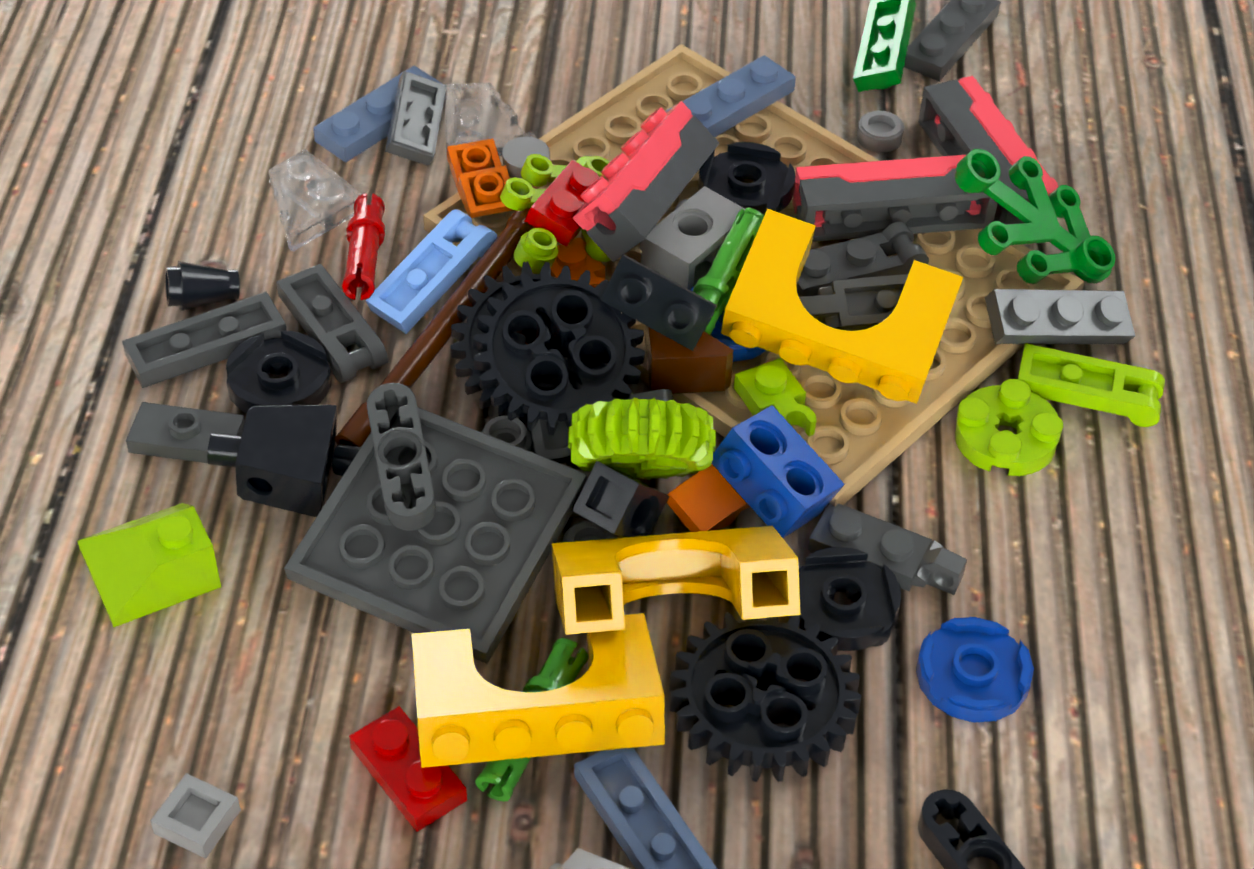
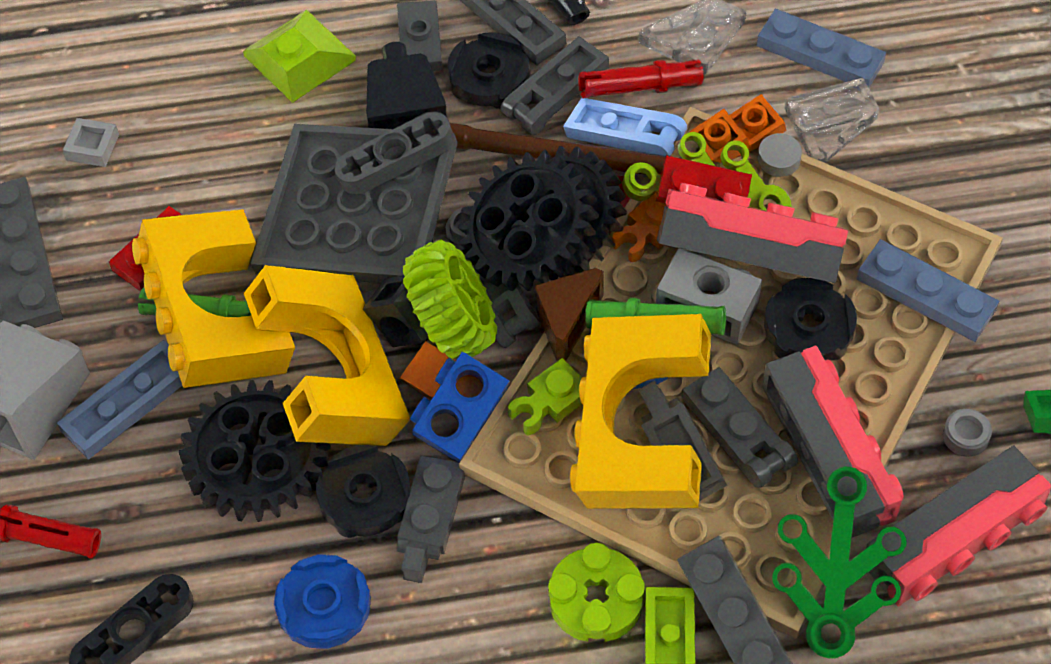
camera: 80 degrees right, 10 degrees up
(416, 118) = (811, 69): plate -> none
(658, 302) = (580, 246): black hinge -> none

